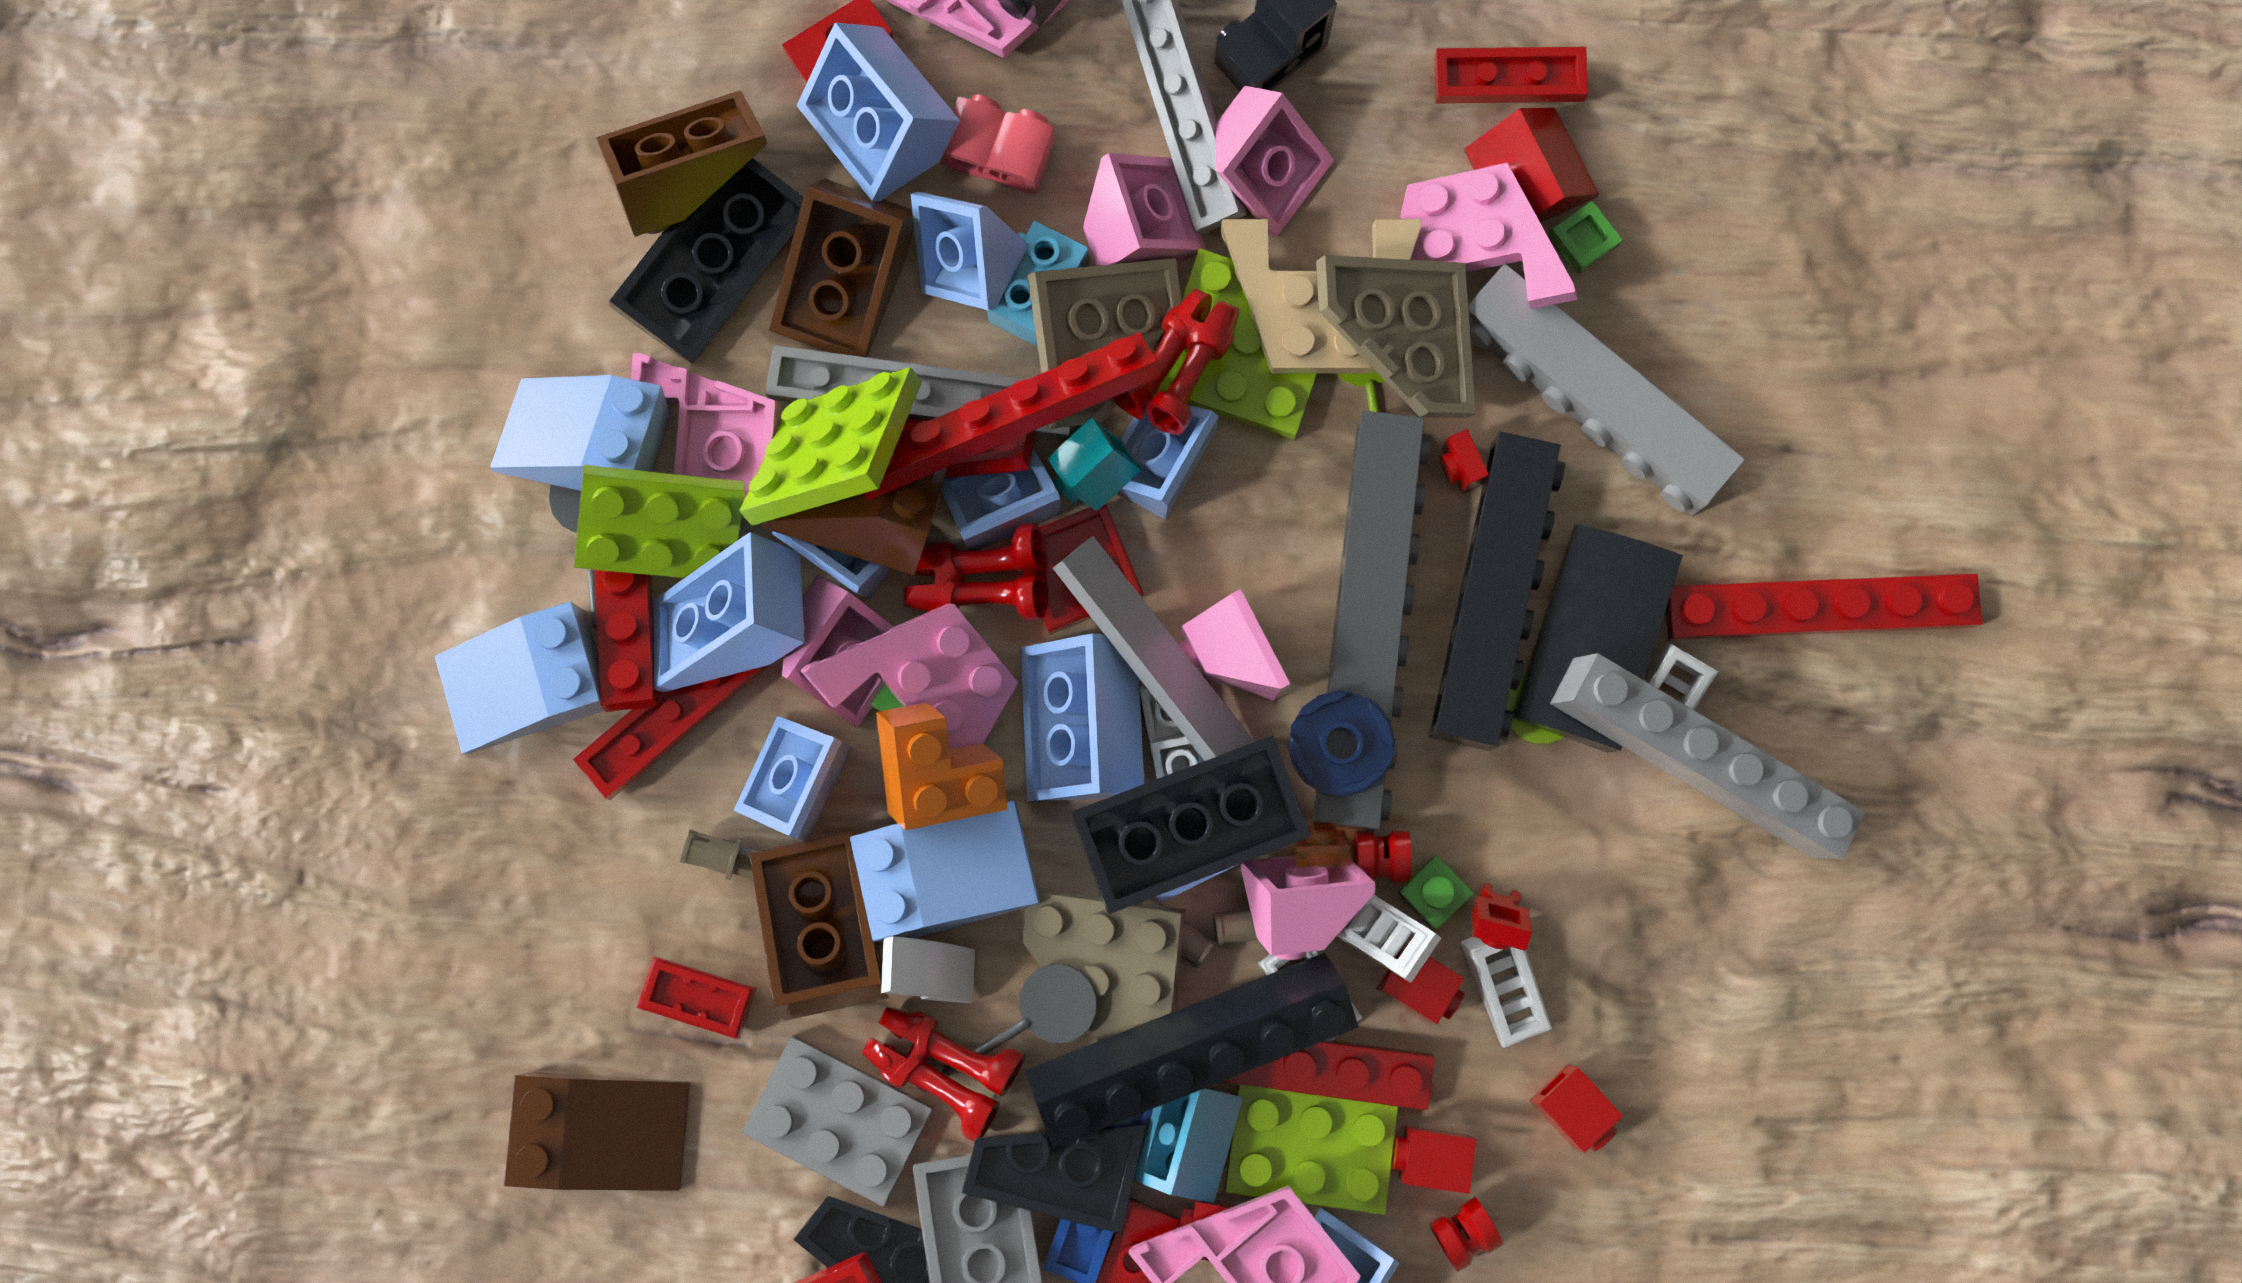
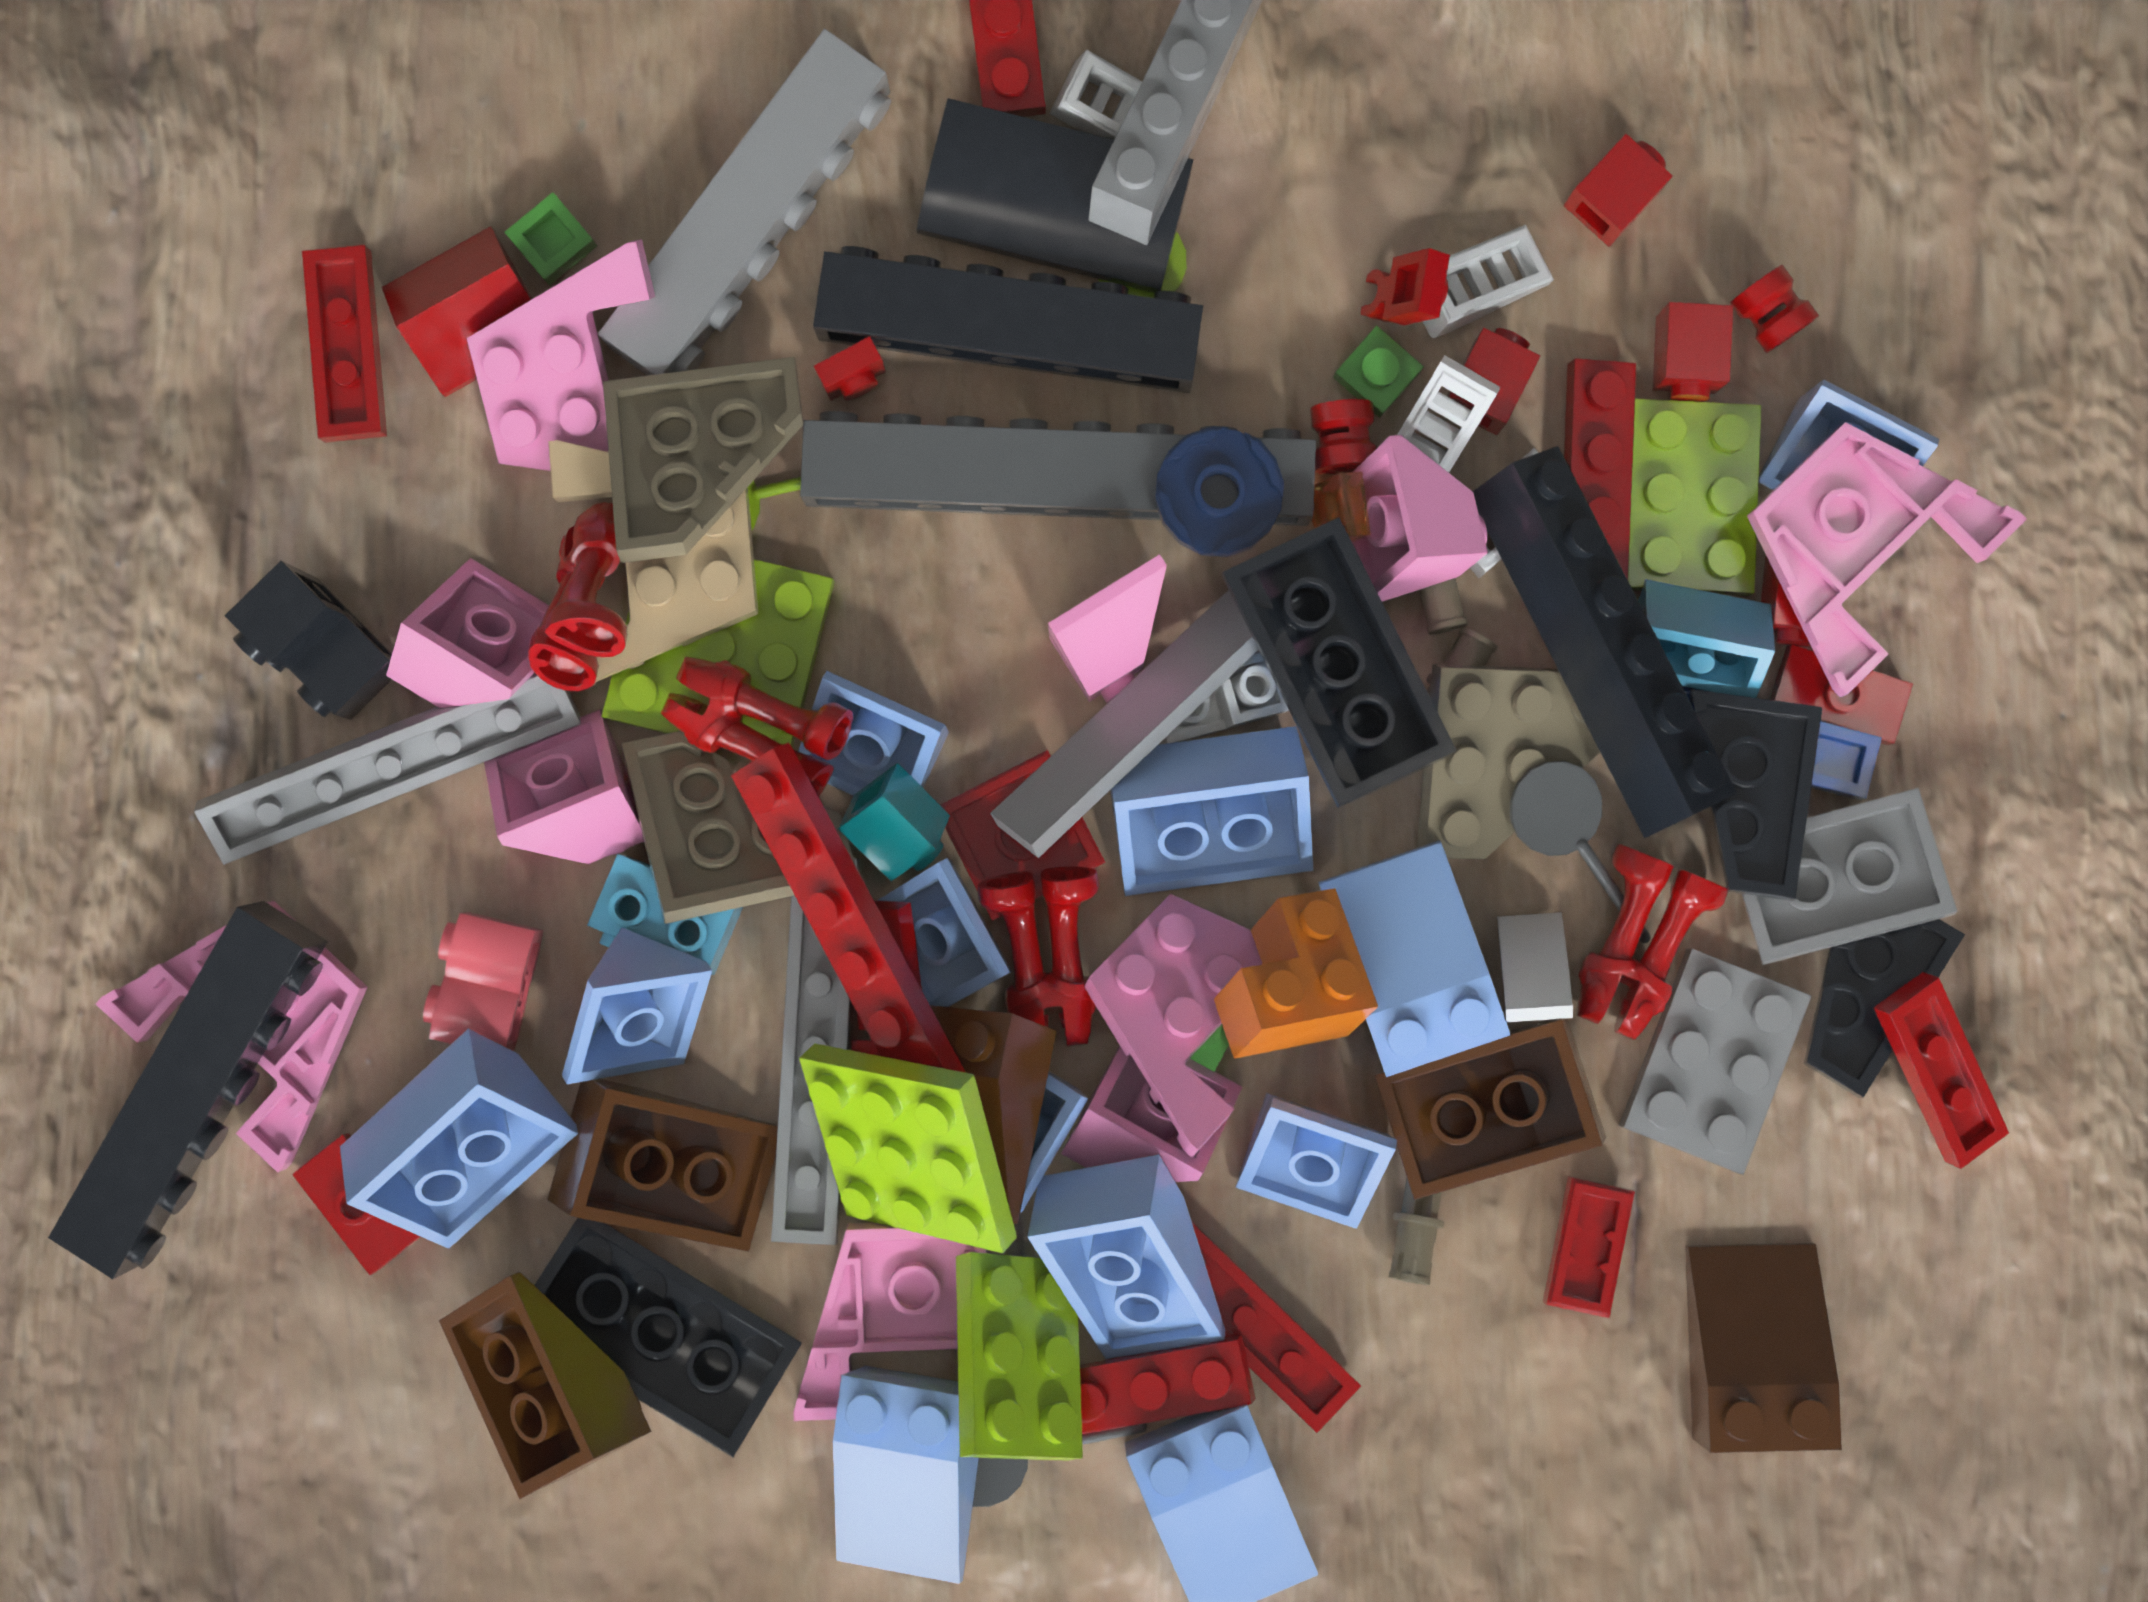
camera: 95 degrees left, 5 degrees up
(1264, 221) = (574, 625): none -> red piece

